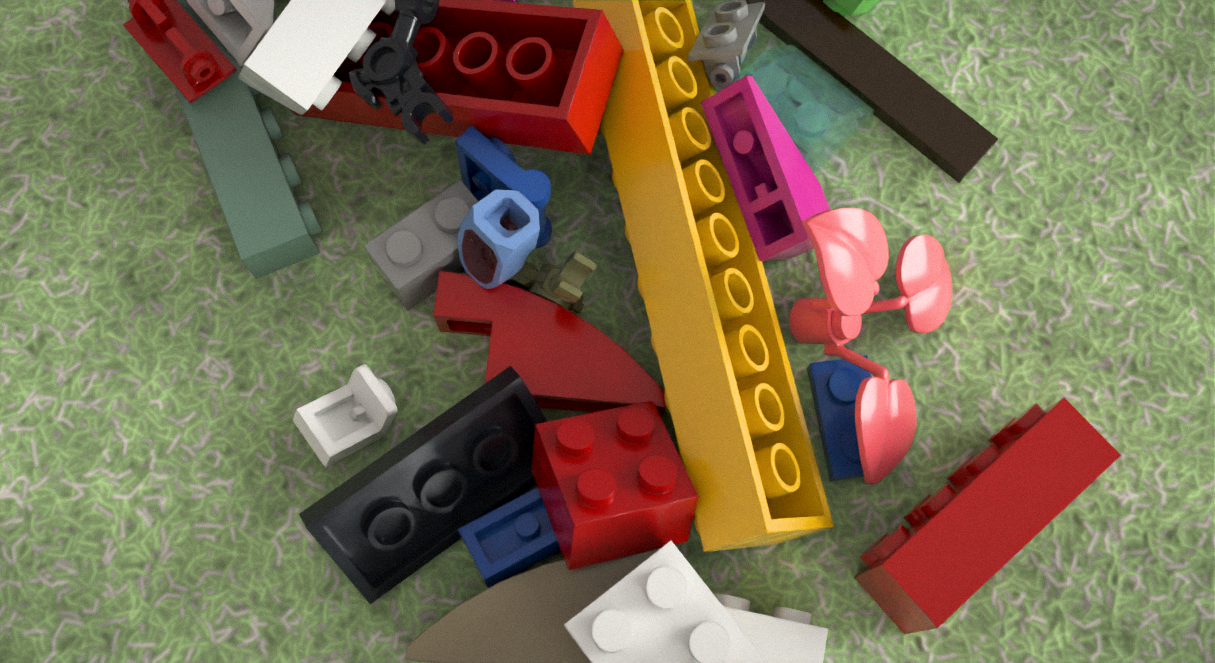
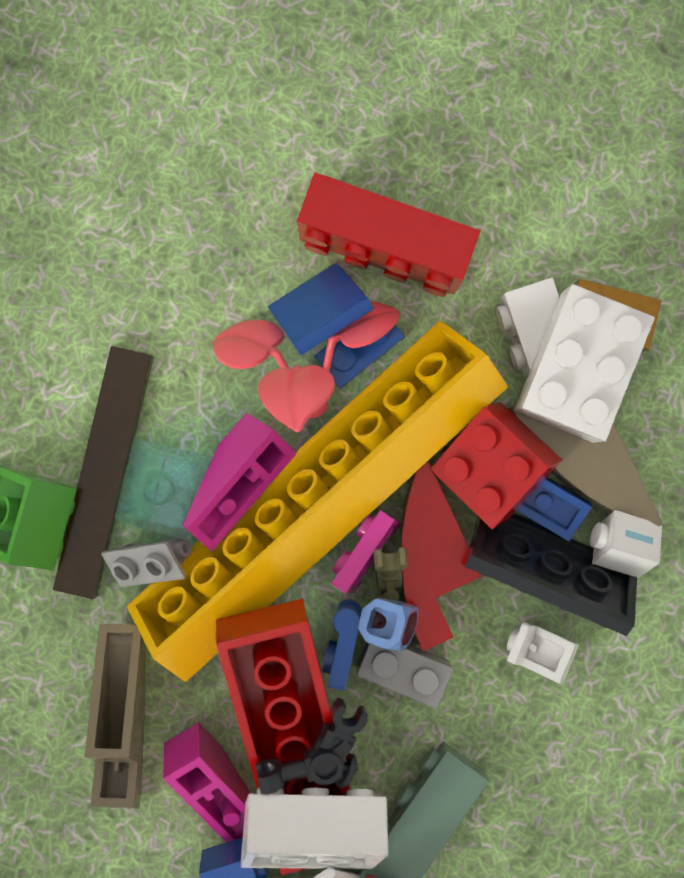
camera: 120 degrees left, 15 degrees up
(410, 597) = (626, 544): none -> white brick
(610, 288) = (353, 566): none -> dark pink plate
(926, 385) = (320, 308): none -> blue tile

